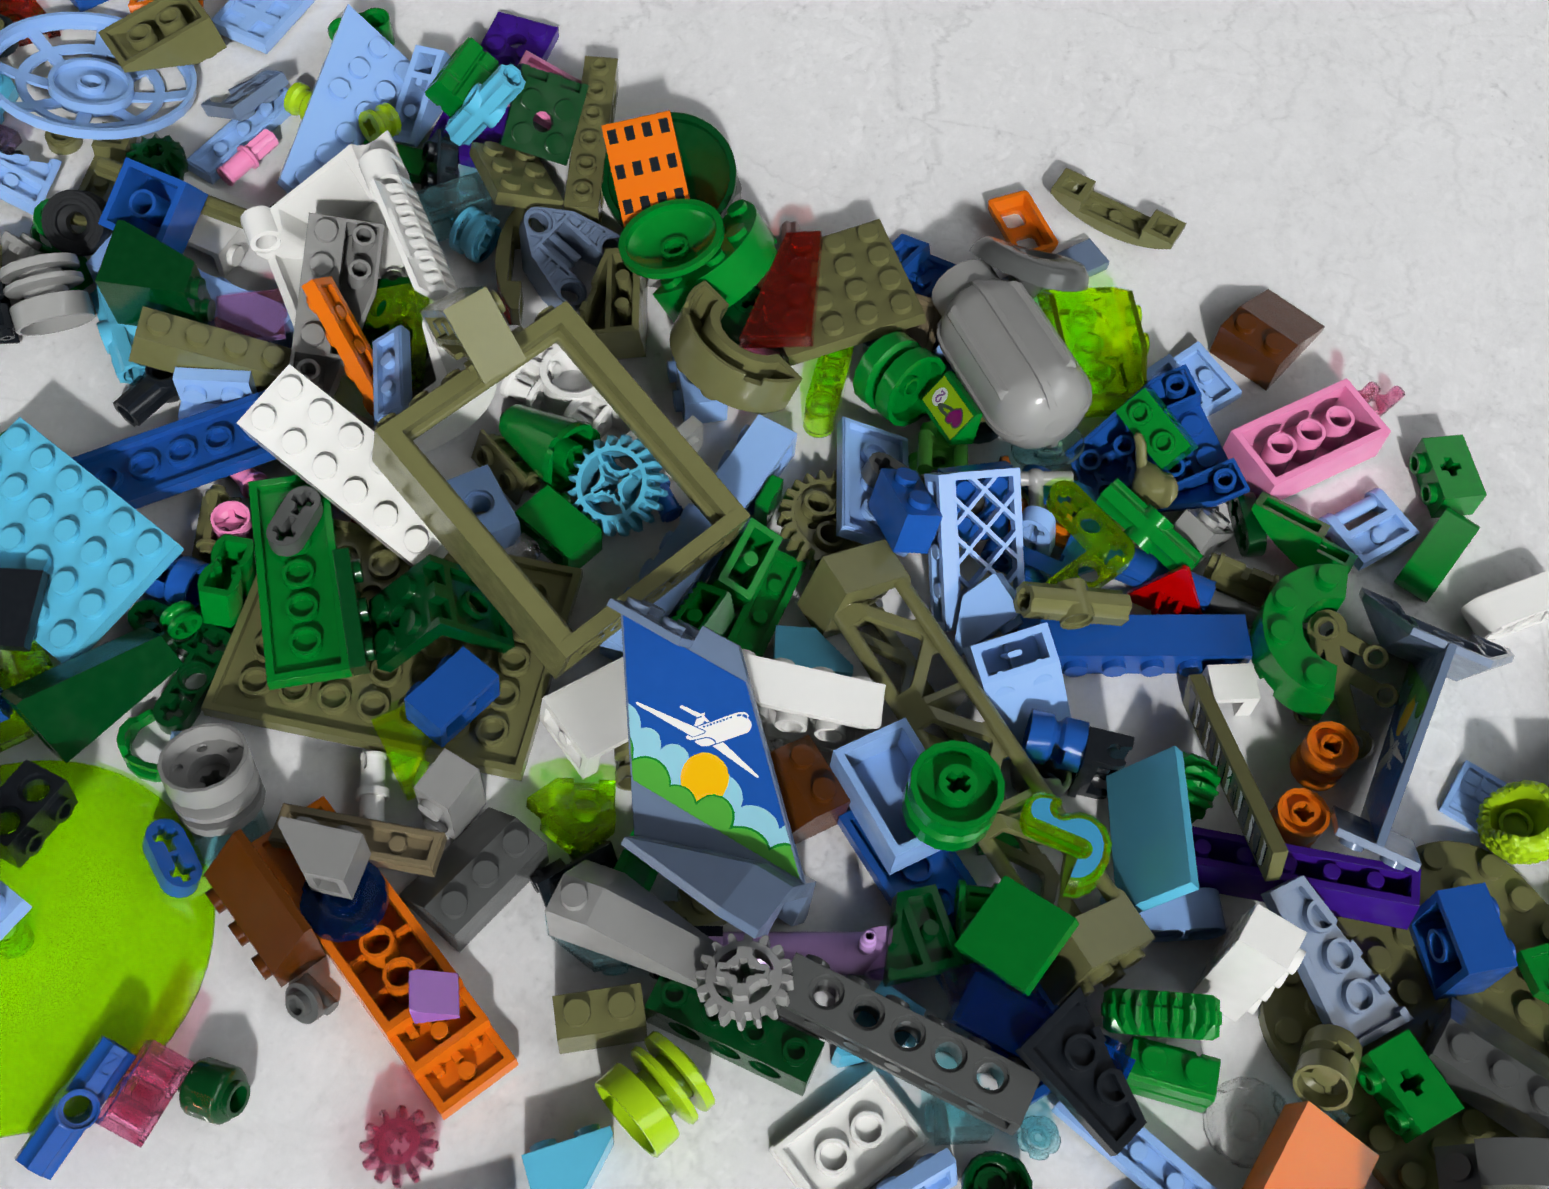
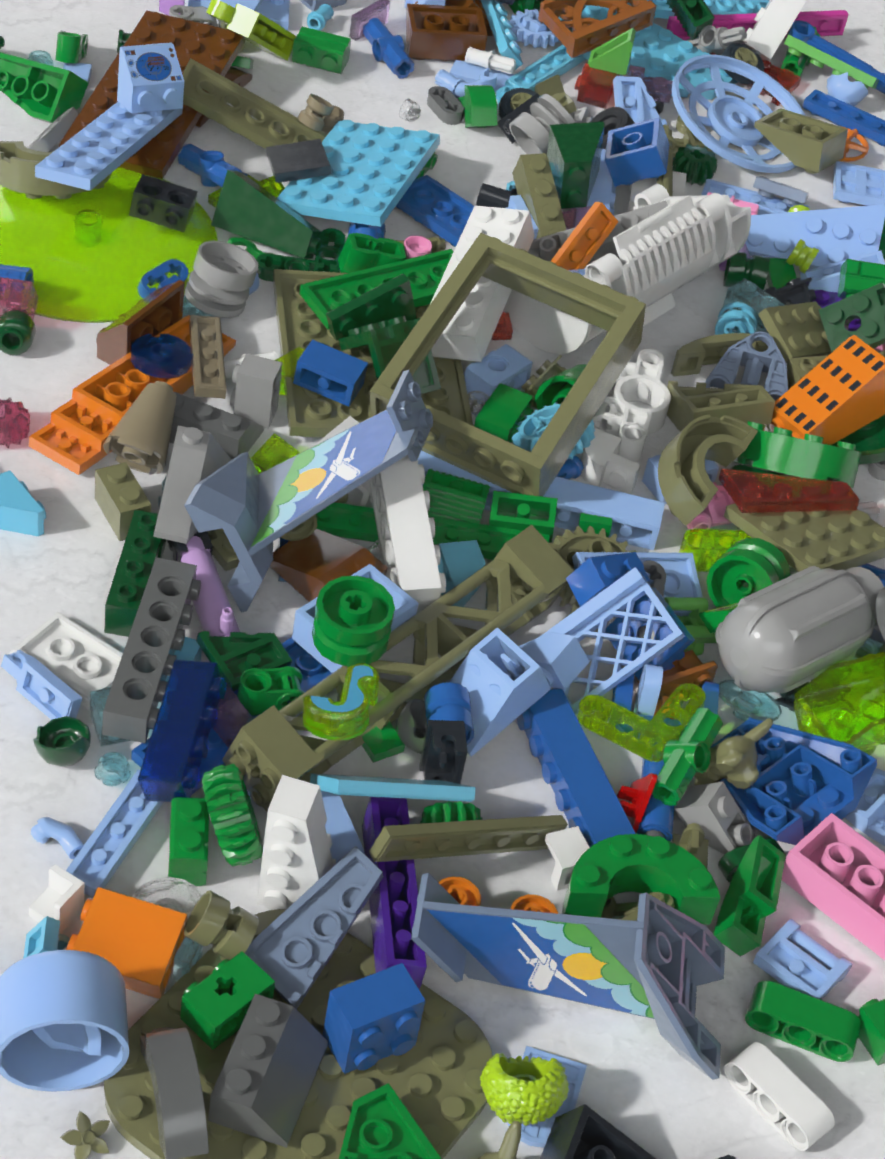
camera: 70 degrees right, 15 degrees down
(181, 620) = (331, 244): green bush -> none
(289, 518) = (424, 269): dark grey beam -> none
(308, 1000) = (90, 364): dark grey plate -> none
(327, 855) = (183, 329): light grey slope -> none
(433, 996) = (103, 397): medium lavender slope -> none
(473, 327) = (584, 250): wedge -> none
(485, 104) = (842, 284): medium azure piece -> none
(499, 954) = (145, 429): none -> dark tan cone
(662, 1087) = (72, 528): lime wheel -> none
(671, 239) = (782, 404): green dish -> none
(762, 988) = (163, 537): light grey gear -> none
(1017, 935) = (254, 683): green tile -> none
(1036, 479) = (698, 678): light grey piece -> none
(1072, 603) = (576, 699): olive piece -> none
(1078, 1070) = (156, 740): black wing -> none
(1163, 433) = (793, 747): green brick -> none

